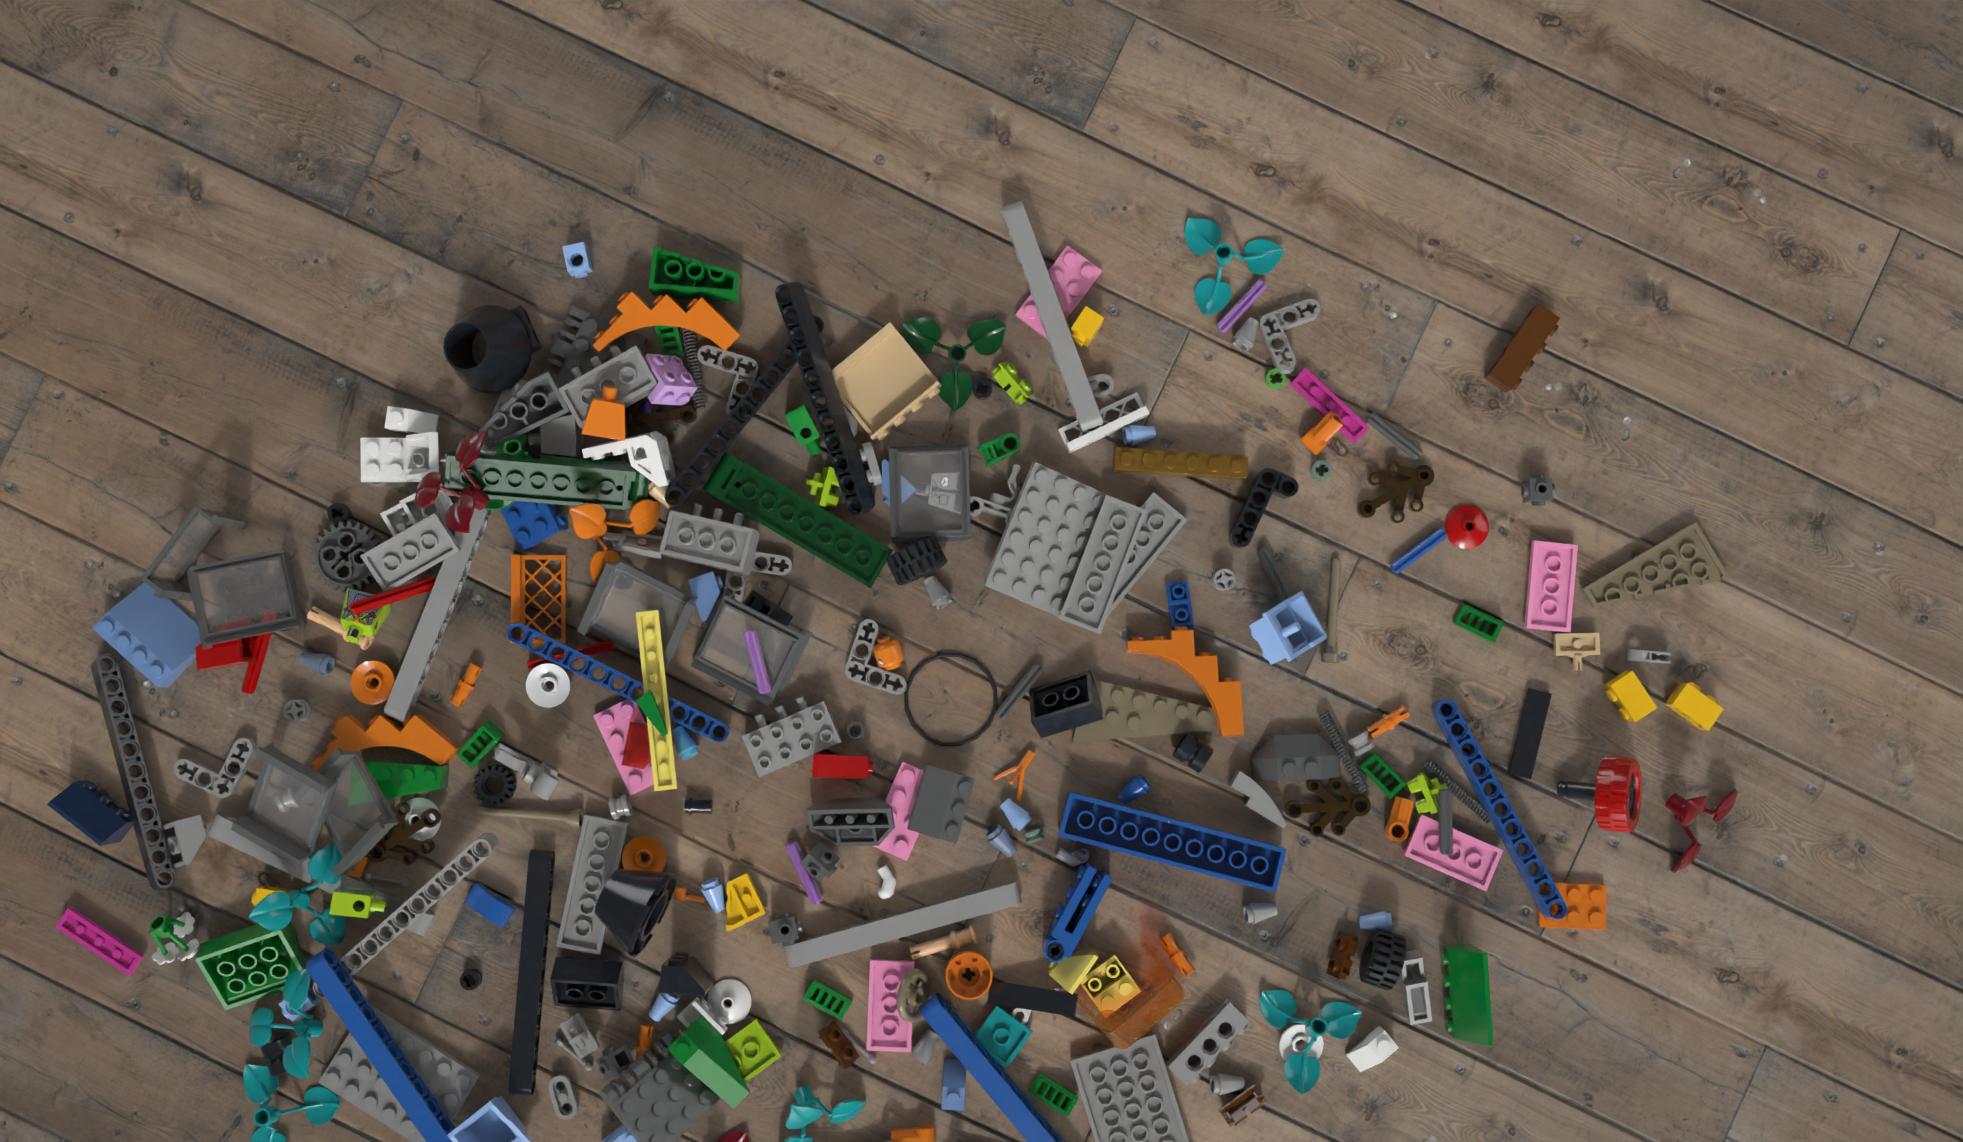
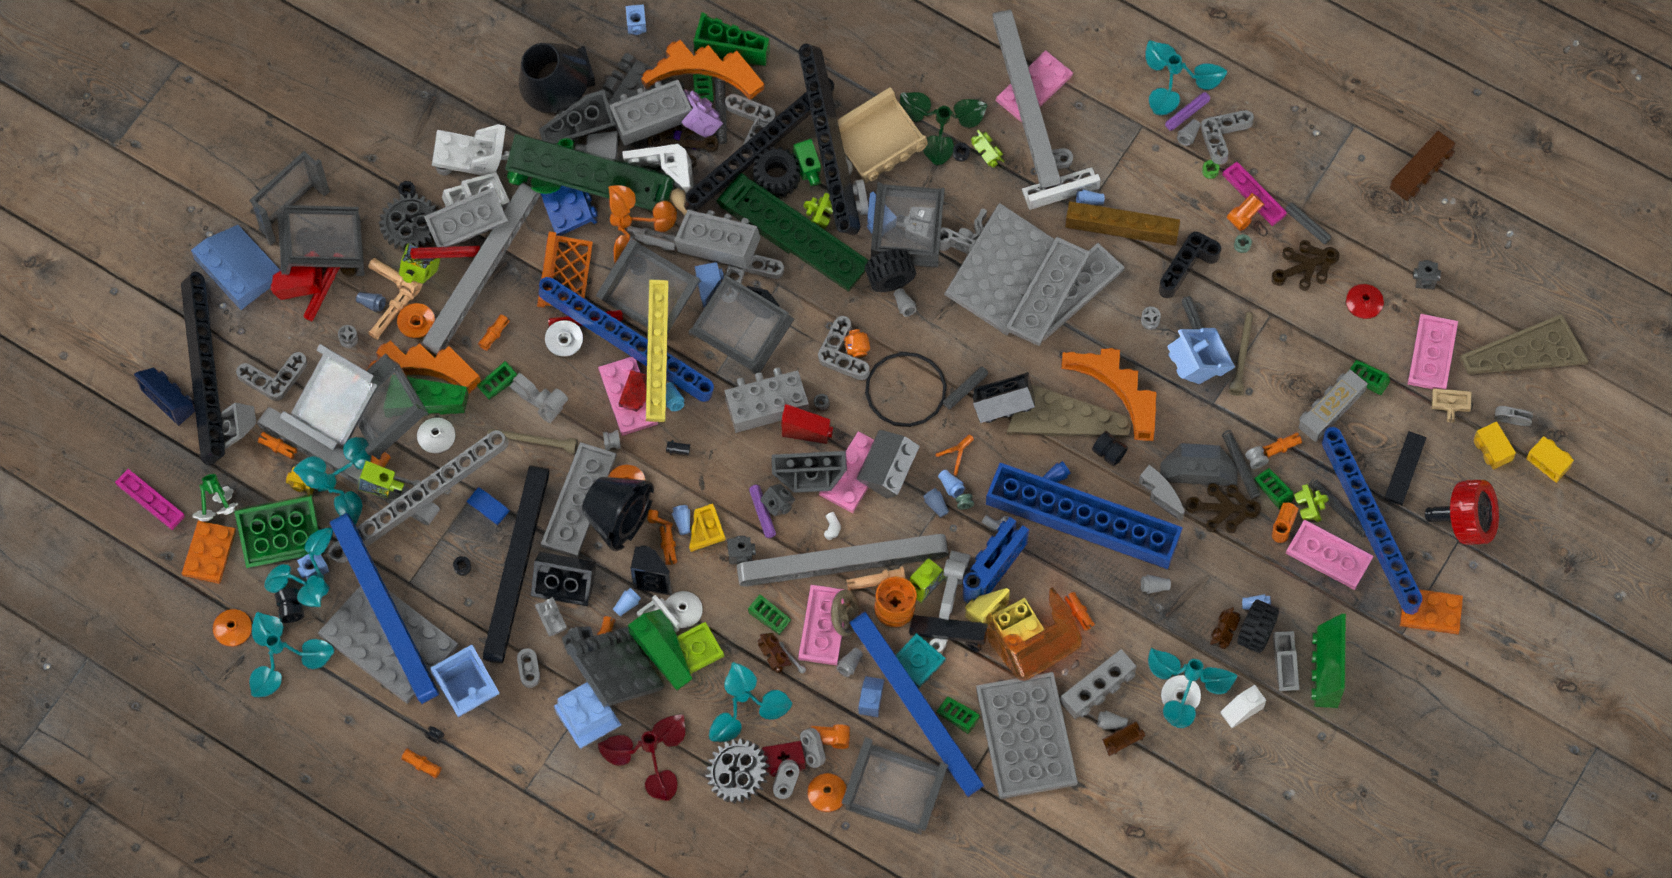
camera: 10 degrees right, 20 degrees down
(179, 997) = (209, 552): none -> orange plate
(231, 1083) = (235, 635): none -> orange dish
(235, 856) = (277, 445): none -> orange pin
(345, 664) = (395, 307): none -> light nougat pin
(400, 837) = (420, 443): dark brown plant -> none
(410, 421) = (473, 121): white slope -> none
(459, 513) = (527, 172): dark red plant -> none
(481, 784) = (502, 402): black tyre -> none
(587, 1065) = (553, 647): light grey hinge -> none
(606, 416) = (647, 126): orange torso -> none
(650, 708) = (652, 350): green slope -> none
(702, 926) = (668, 544): none -> orange pin
(755, 431) = (777, 159): none -> black tyre
(757, 661) = (746, 330): medium lavender axle -> none
(998, 449) = (969, 197): green piece -> none
(1001, 938) = (928, 578): none -> lime torso
(1032, 939) = (954, 571): none -> light grey piece
(1086, 327) = (1054, 109): yellow brick -> none
(1179, 604) = (1111, 332): blue slope -> none
(1418, 550) = (1321, 313): blue axle -> none
(1442, 667) = (1332, 405): none -> light grey brick
(1445, 822) = (1323, 522): dark grey axle -> none
(1689, 811) = (1537, 523): dark red plant -> none

